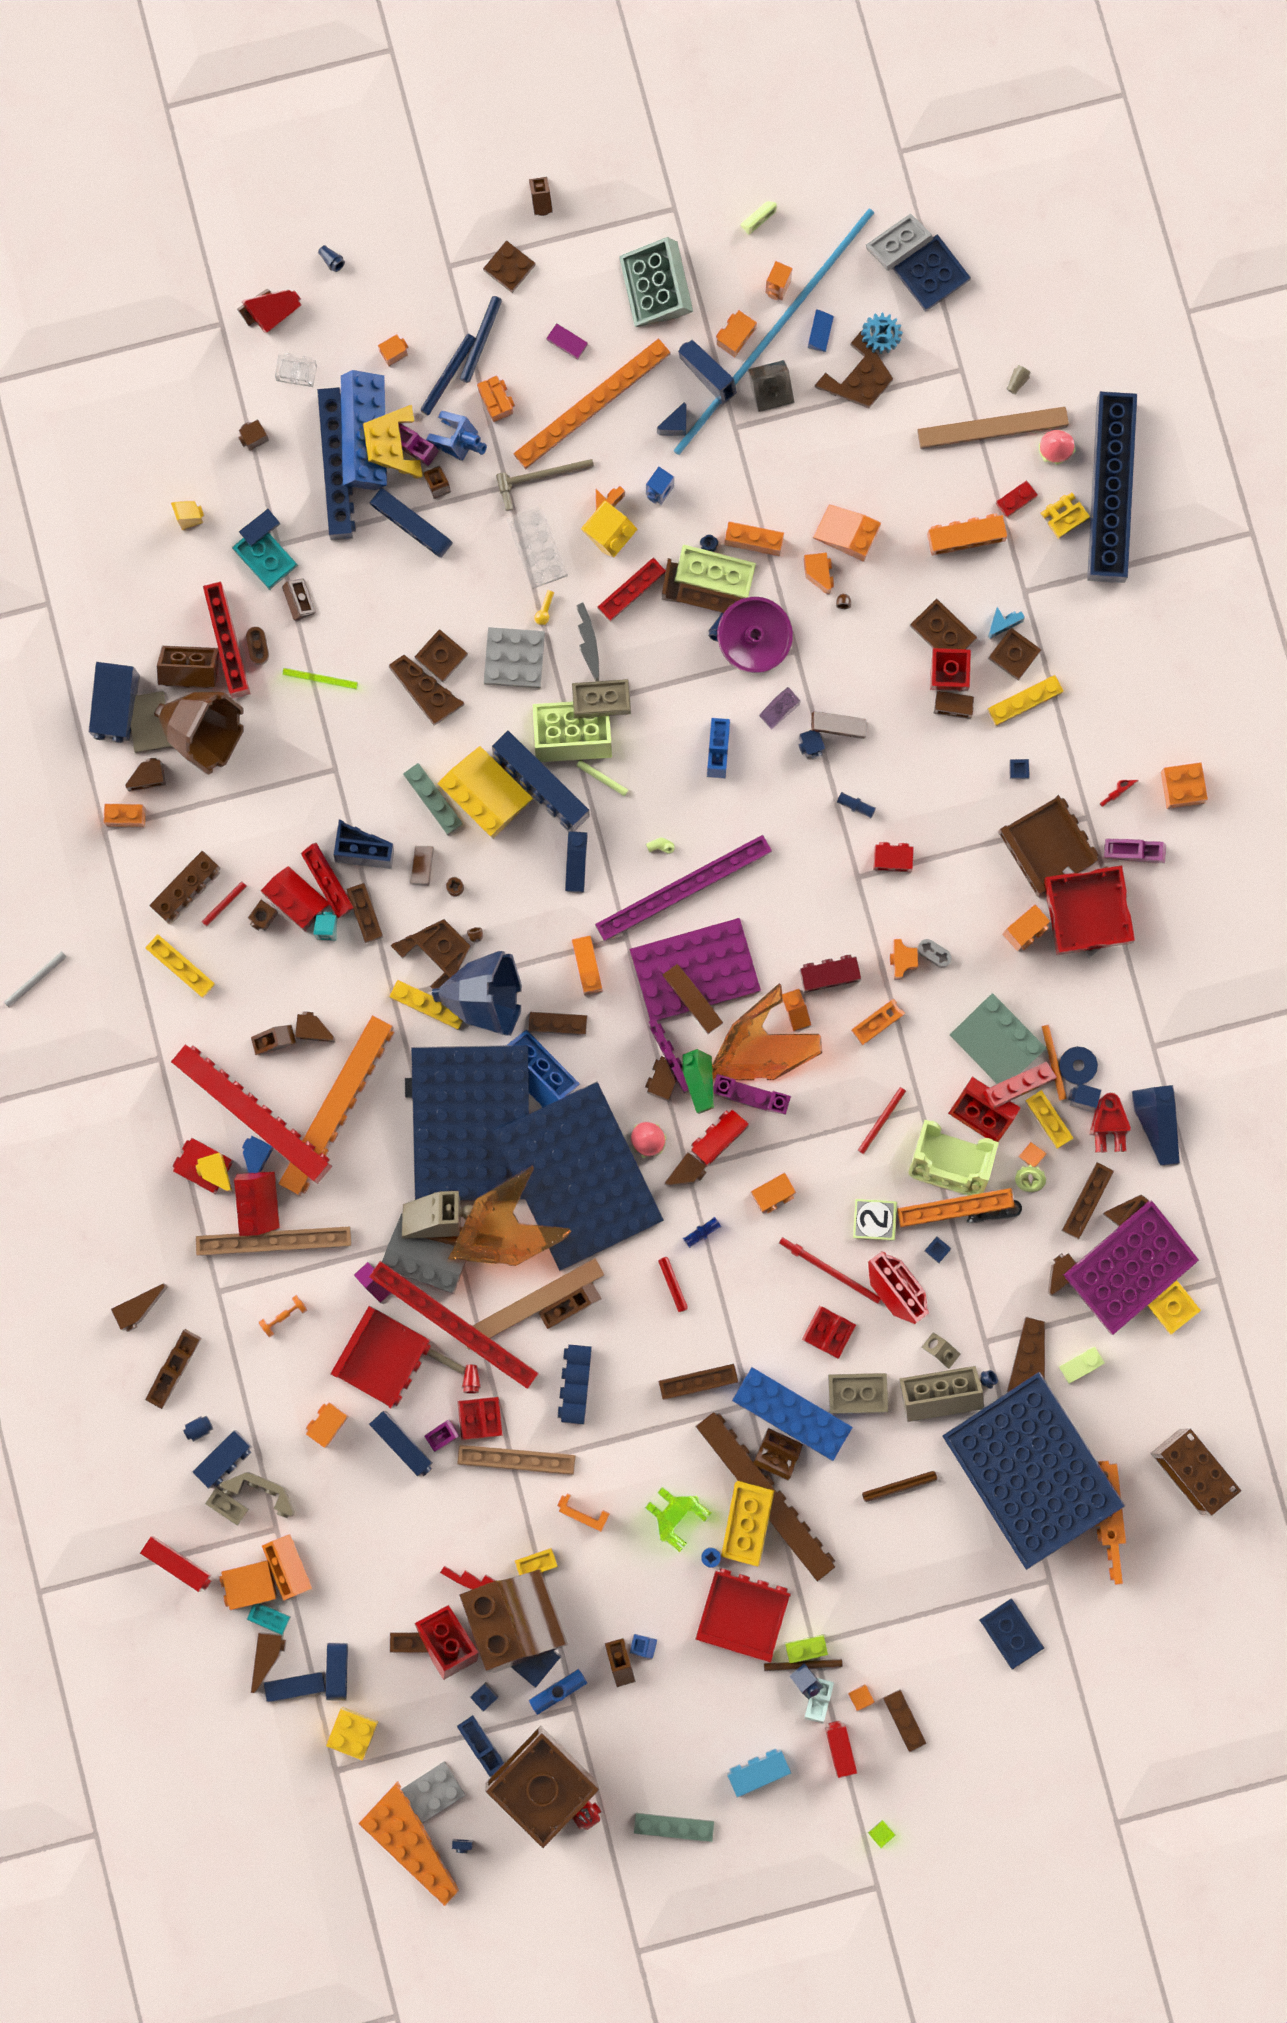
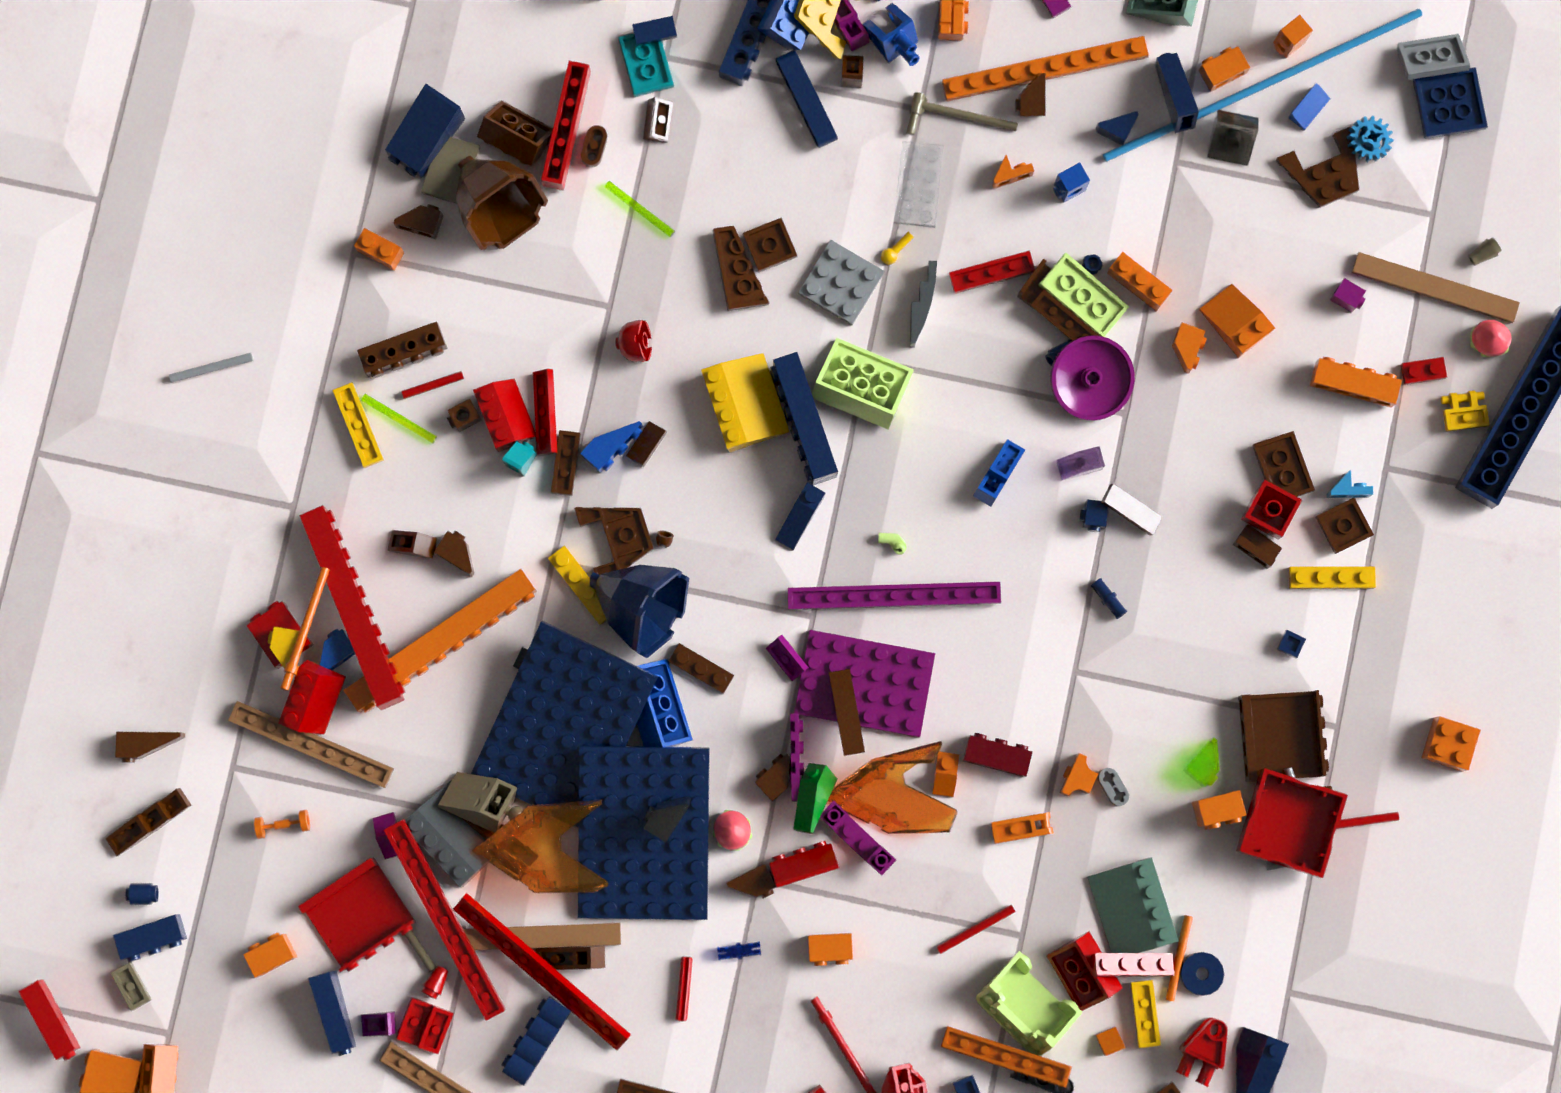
camera: 25 degrees right, 0 degrees up
(210, 944) = (399, 418): none -> clear neon green bar
(228, 1184) = (291, 668): none -> orange bar
(283, 1502) = (187, 1013): dark tan slope -> none
(361, 848) = (594, 397): dark blue wedge -> none
(370, 787) = (634, 341): none -> red cylinder
(391, 883) = (605, 447): none -> blue slope
(432, 799) = (690, 383): sand green plate -> none
(458, 882) = (663, 476): reddish brown bush -> none
(552, 1327) = (541, 971): none -> red plate
(587, 965) = (759, 625): orange slope -> none
(590, 1152) = (665, 817): none -> clear smoke slope
(594, 432) = (1032, 98): none -> reddish brown slope
(601, 698) = (907, 366): dark tan tile -> none
(601, 777) = (868, 445): yellowish green bar -> none
(609, 529) = (999, 201): yellow slope -> none
(622, 980) = (787, 657): none -> magenta plate
(843, 601) = (1197, 388): reddish brown hinge -> none
(875, 1219) = (919, 1026): slope -> none
(893, 858) = (1120, 670): red brick -> none
(927, 468) = (1348, 295): none -> magenta brick
(998, 899) = (1205, 764): none -> clear neon green slope
(1023, 1181) = (1087, 1064): yellowish green gear -> none
(1084, 1097) = (1192, 1010): dark blue brick -> none
(1119, 790) = (1376, 717): red hand -> none
(1135, 850) = (1368, 784): magenta slope -> none
(1149, 878) = (1366, 820): none -> red bar

